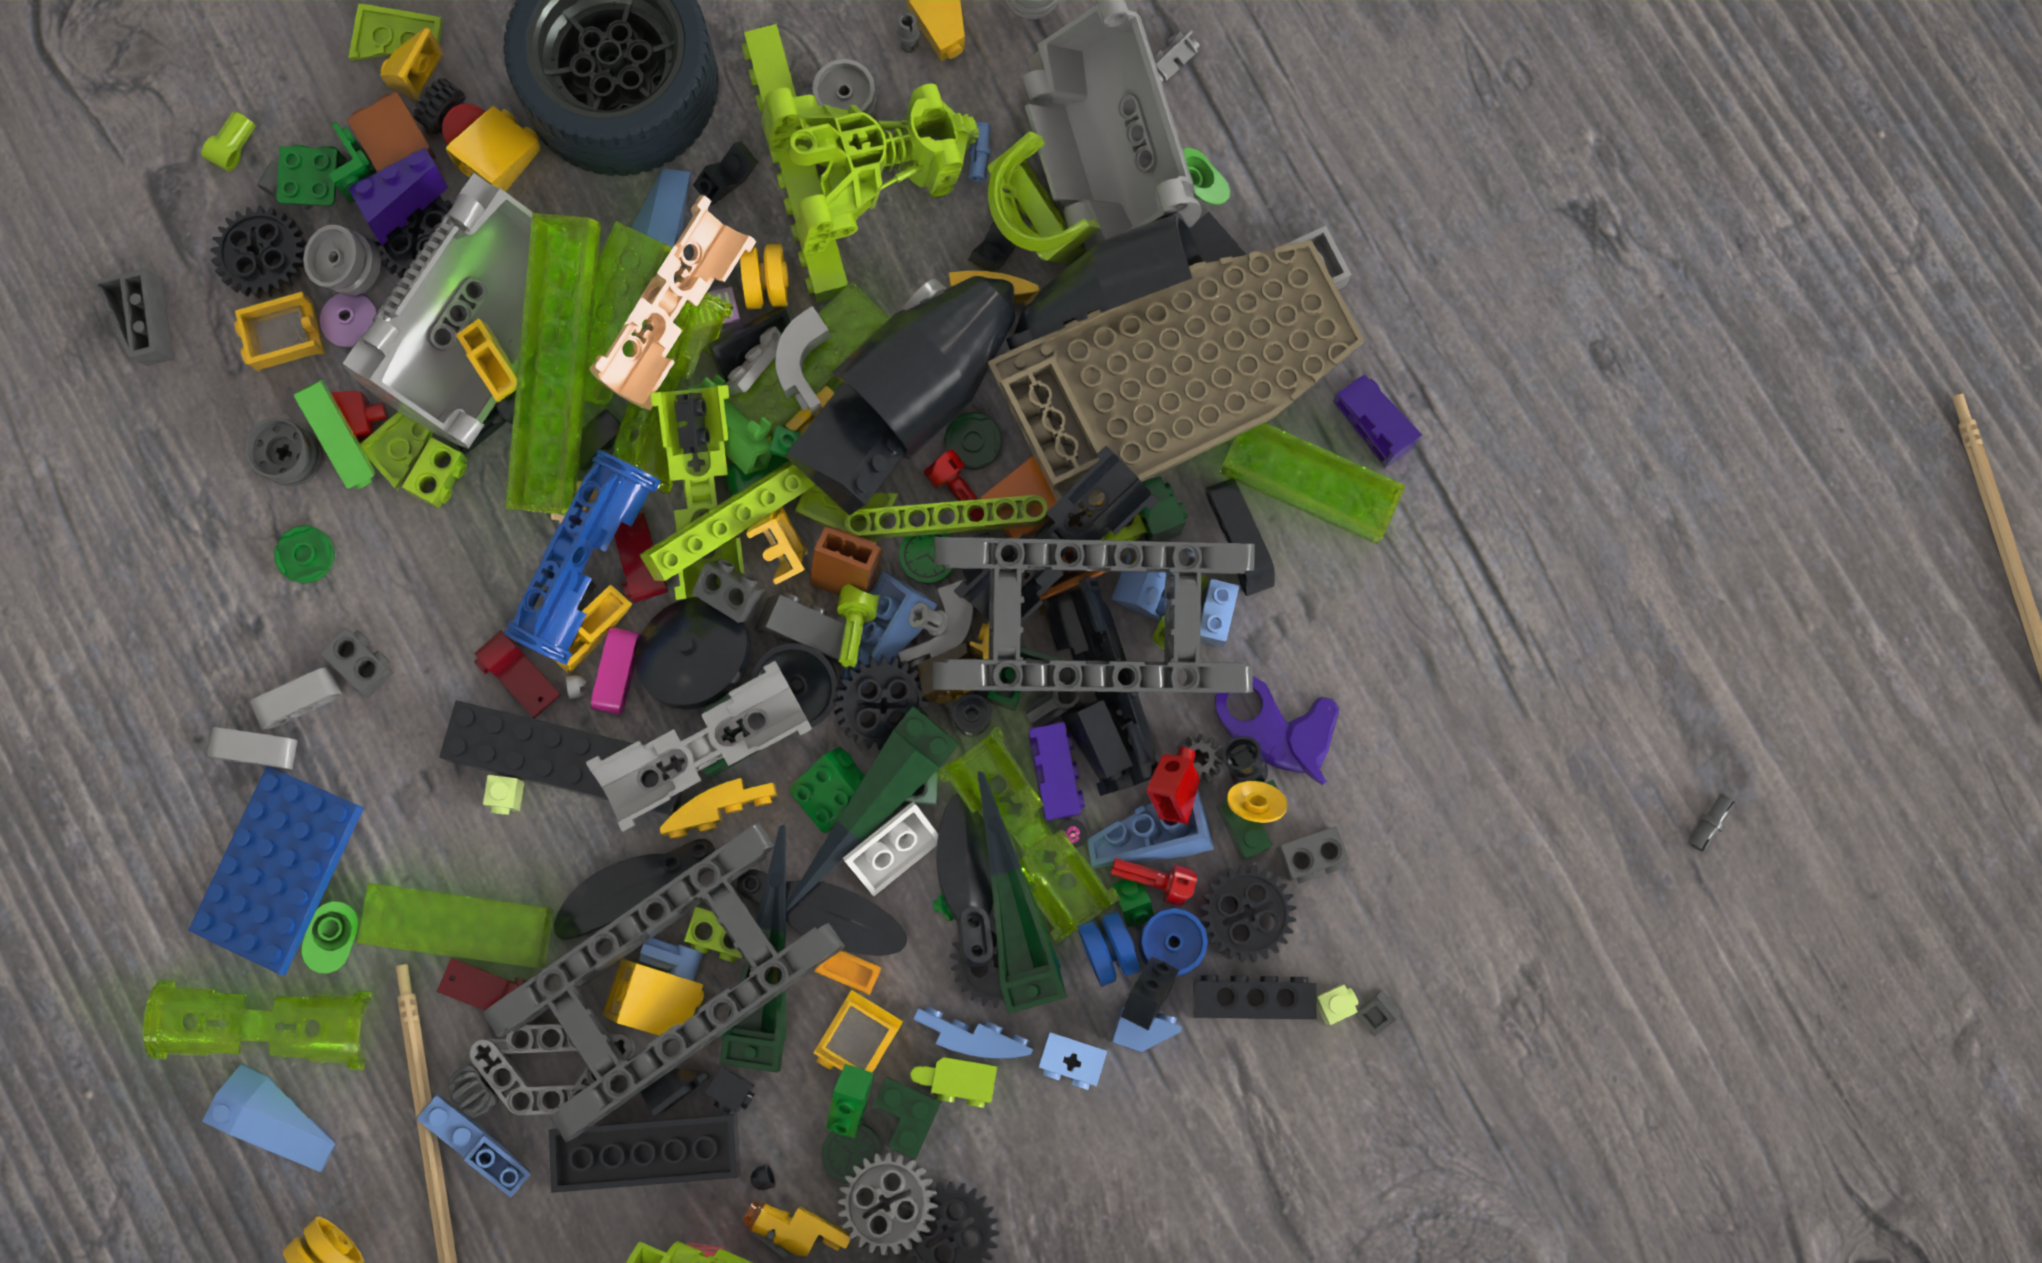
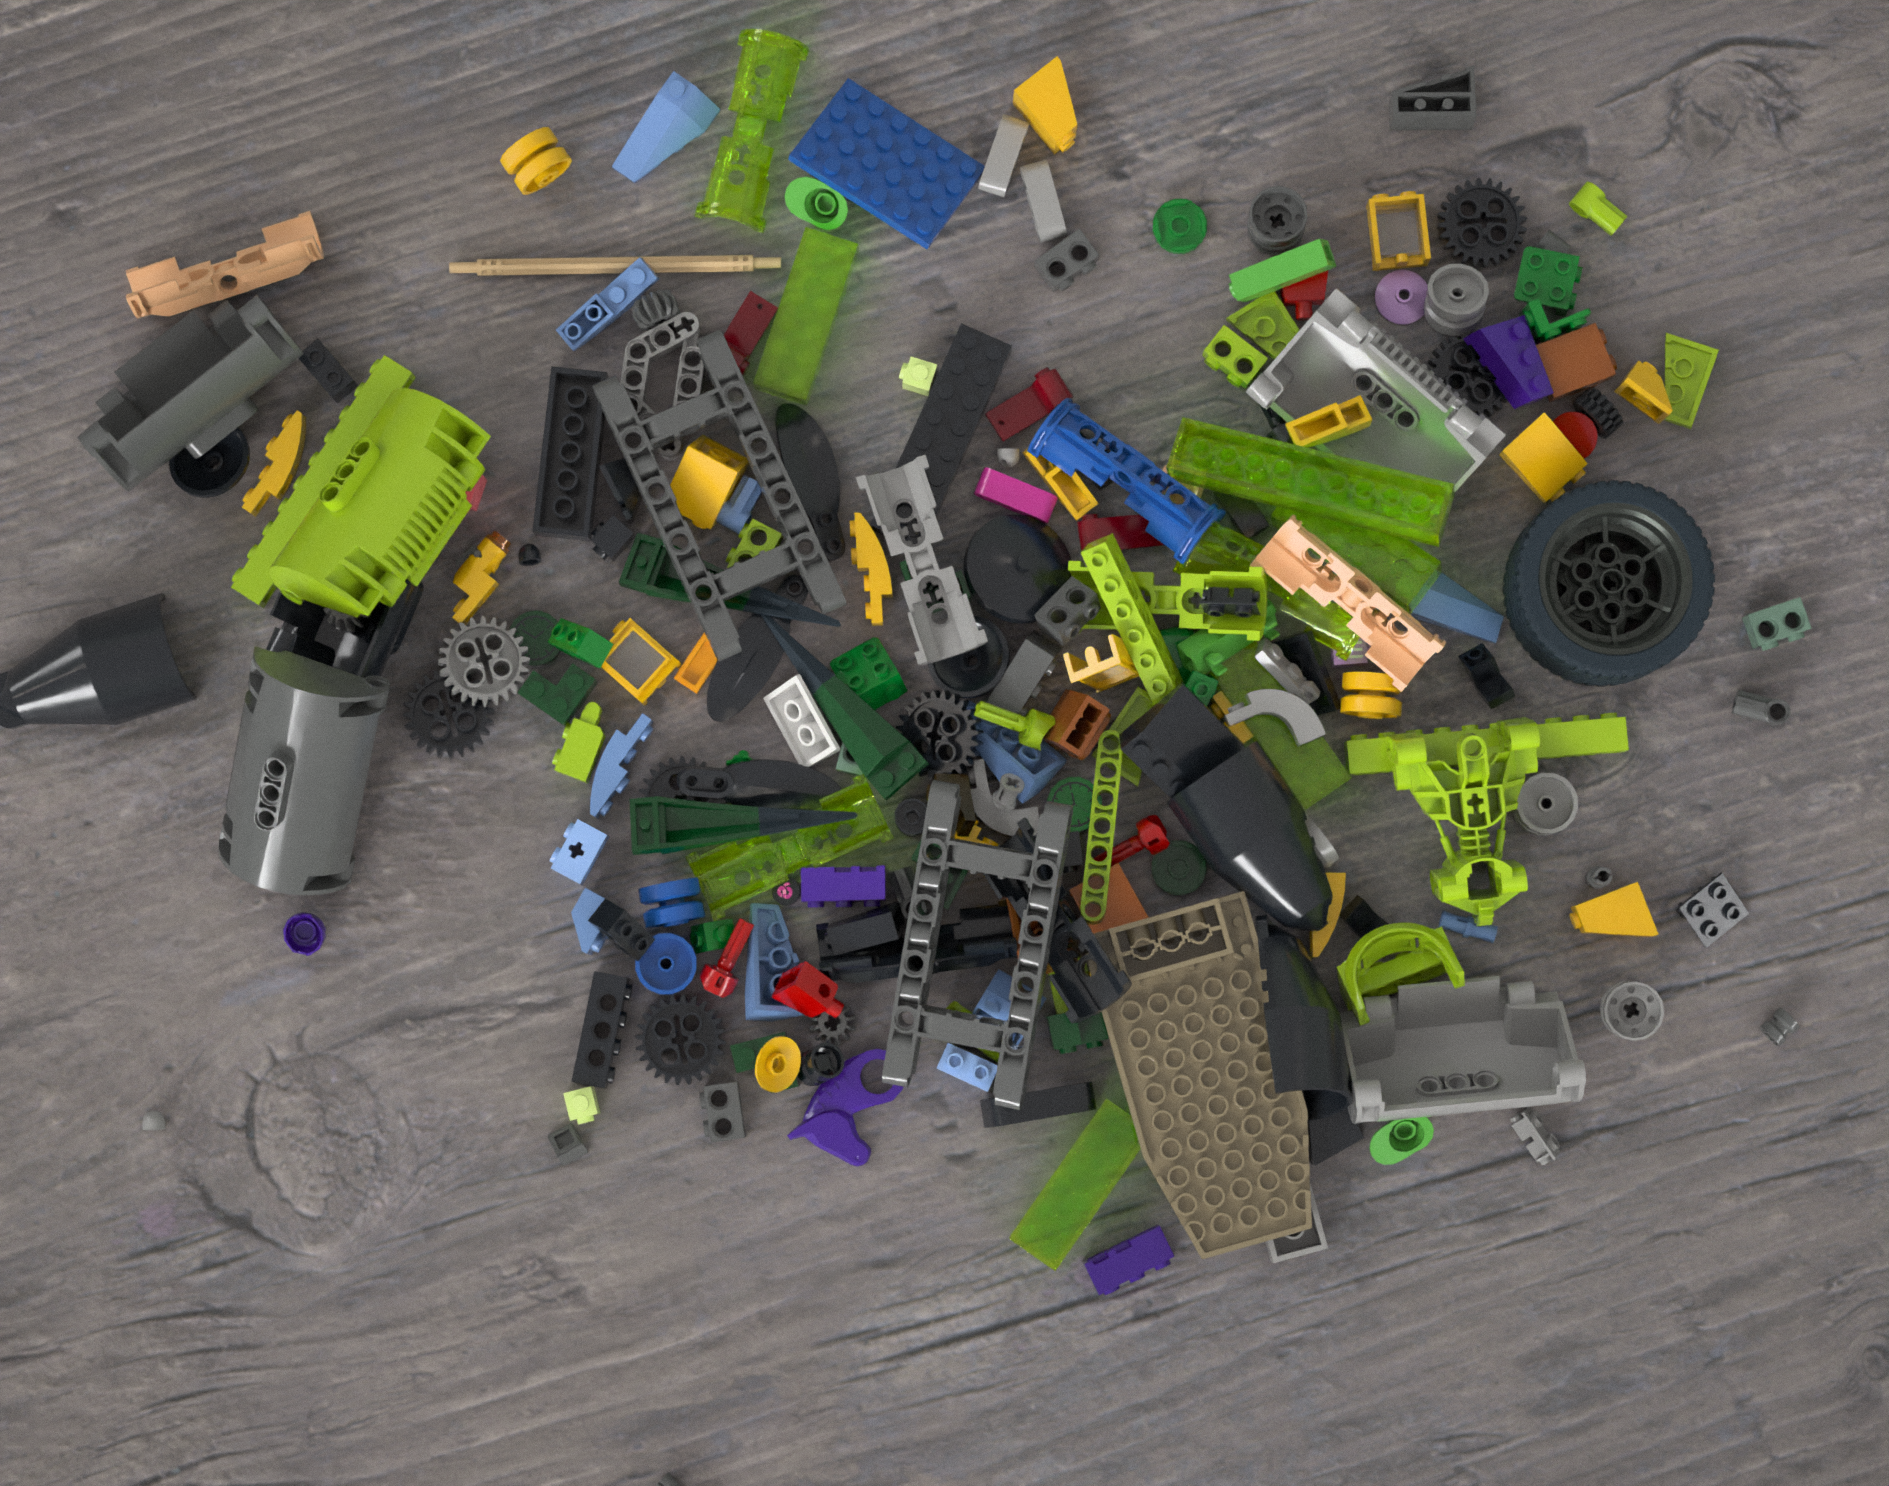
camera: 105 degrees right, 5 degrees up
(191, 707) = (1048, 106): none -> yellow slope

